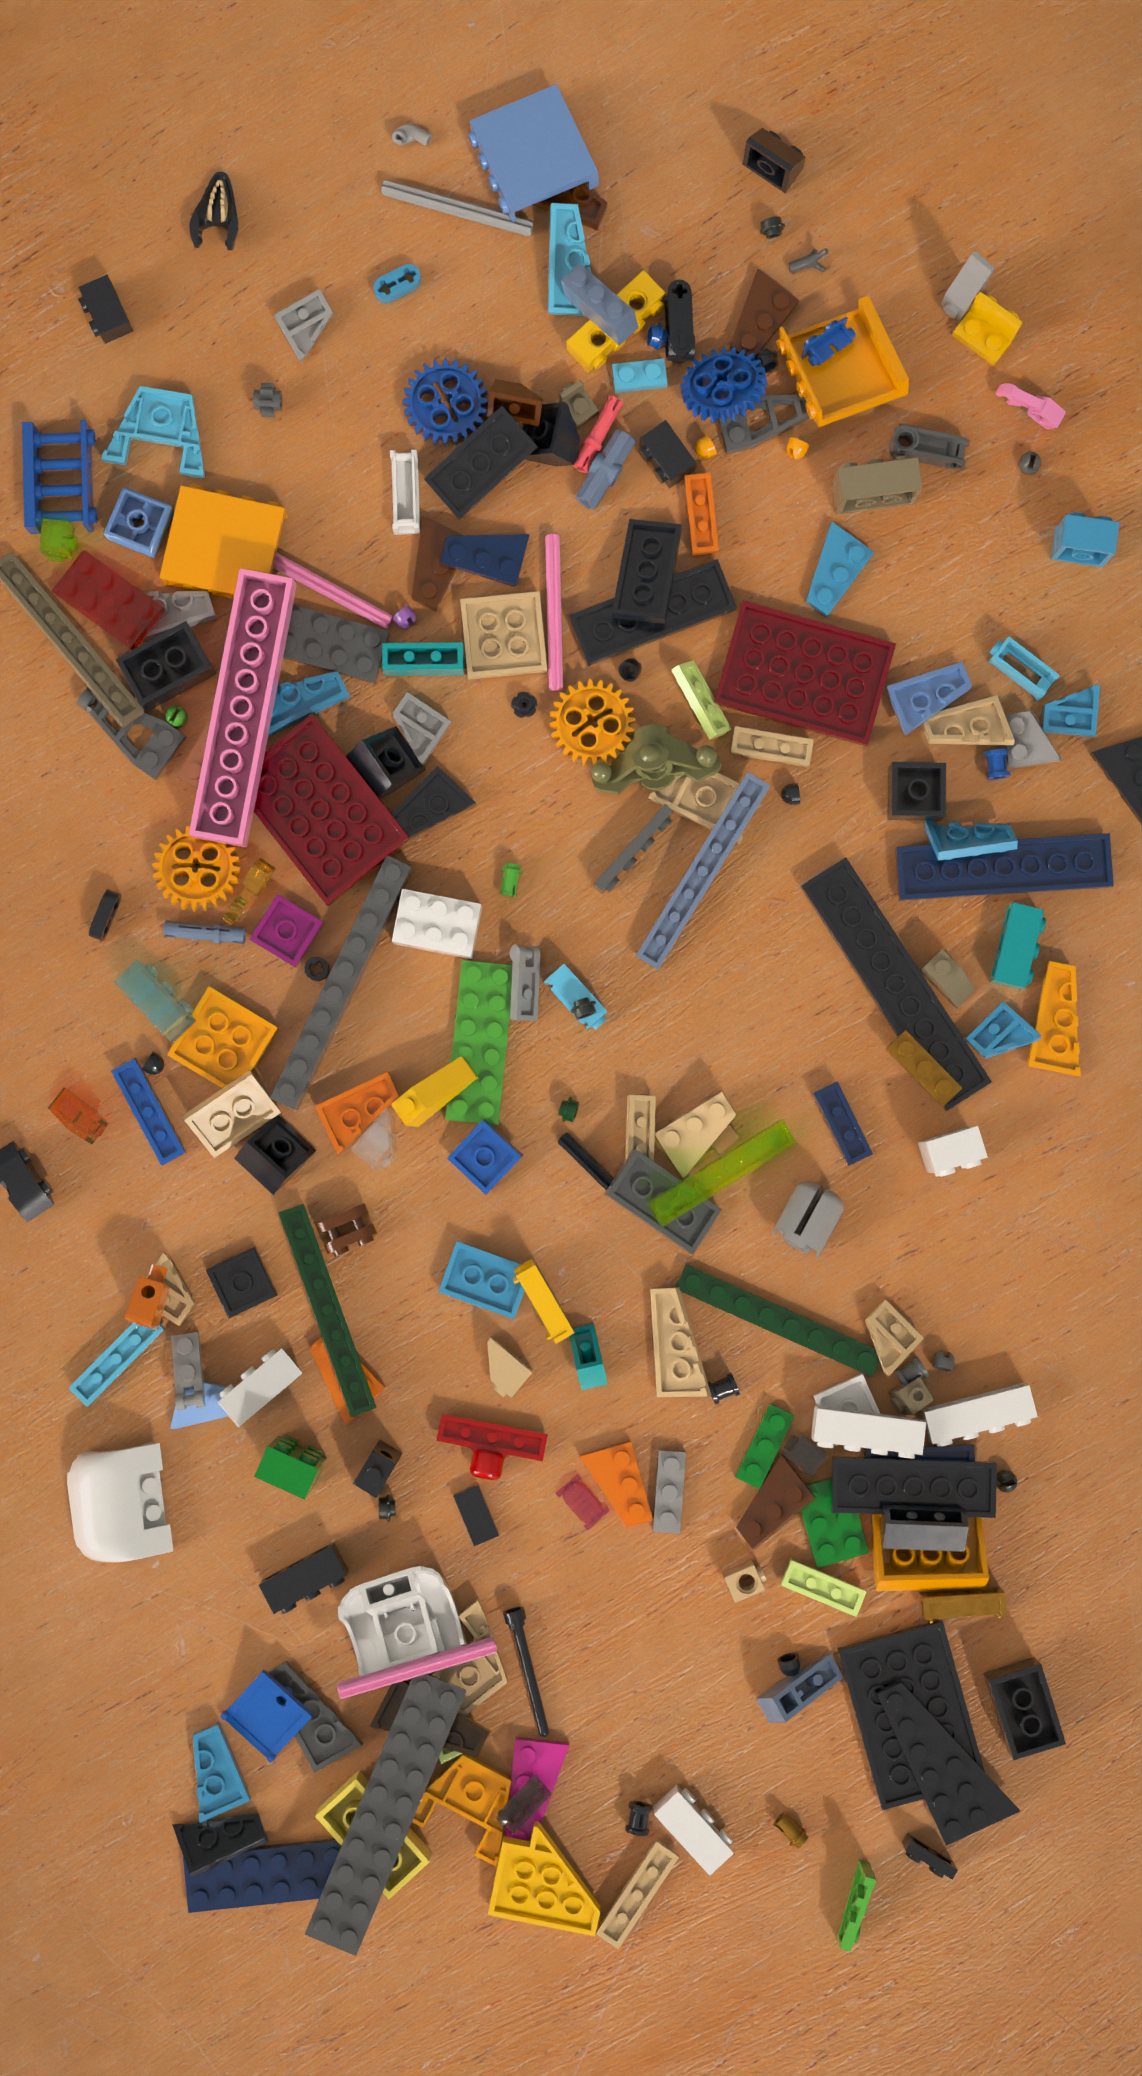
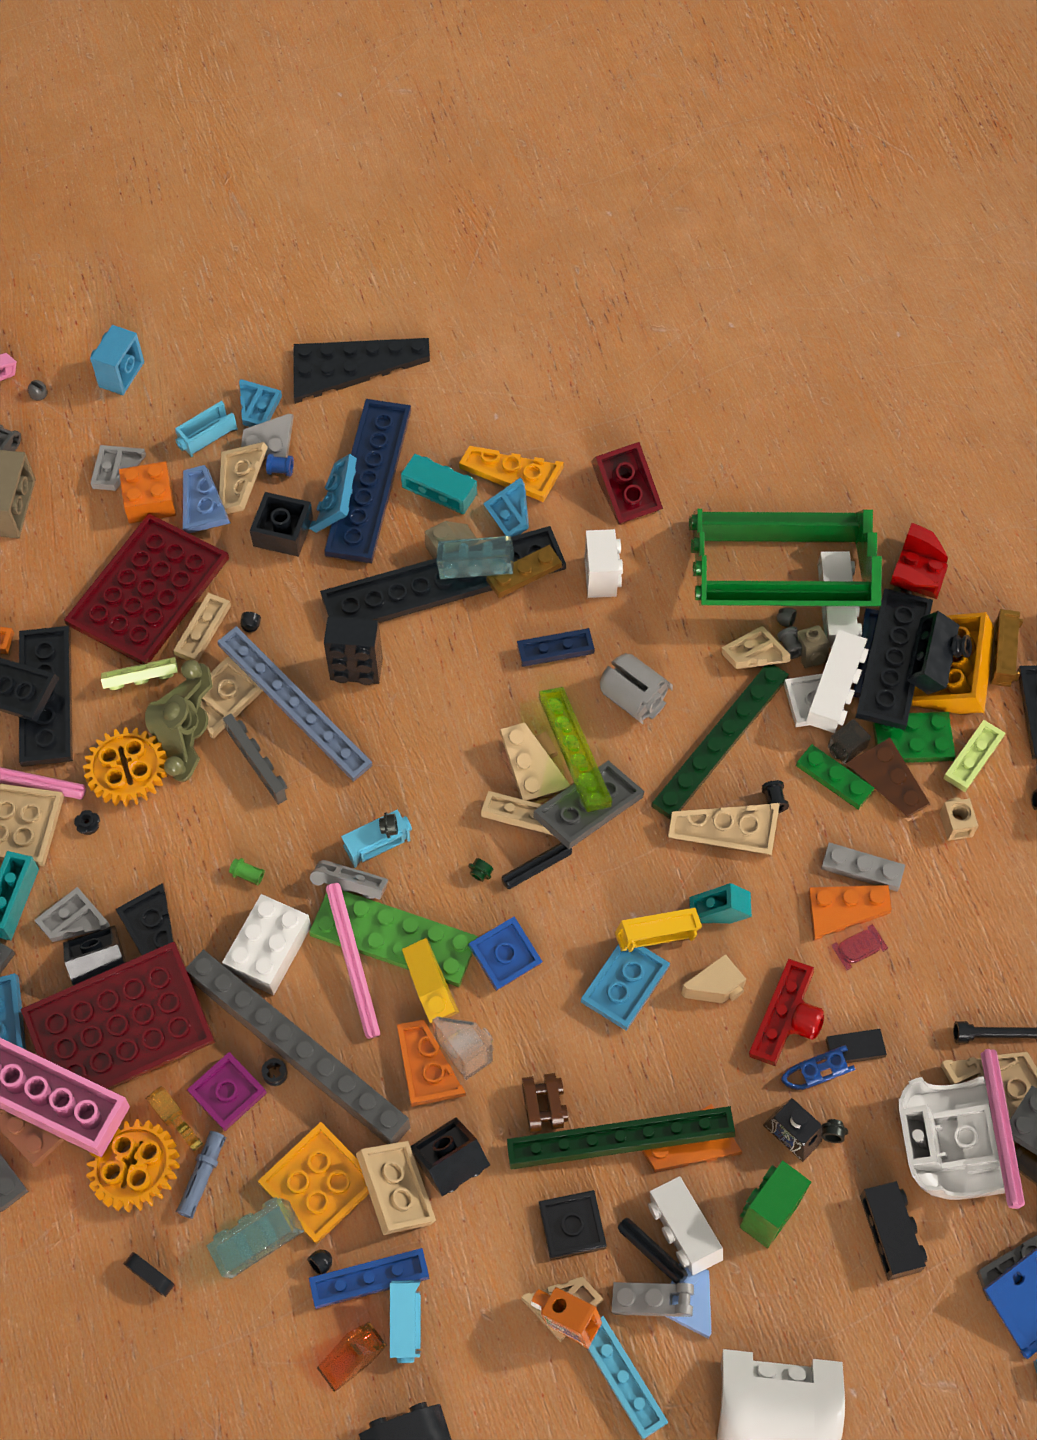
camera: 75 degrees left, 25 degrees down
(117, 1155) = (405, 1320): none -> medium azure window
(231, 1361) = (652, 1251): none -> black axle
(438, 1477) = (812, 1070): none -> blue piece
(440, 1011) = (353, 961): none -> bright pink axle
(625, 665) = (95, 723): black hinge -> none
(770, 916) = (353, 650): none -> black brick
(837, 568) = (67, 545): dark azure wing -> none
(919, 1013) = (475, 557): none -> clear light blue brick
(922, 632) = (147, 491): none -> orange brick
(937, 1558) = (962, 646): none -> black bush
(949, 585) = (108, 463): none -> light grey wing
(1043, 1496) = (921, 563): none -> red piece
(1059, 1339) = (788, 528): none -> green door
(1071, 1153) = (627, 483): none -> dark red slope

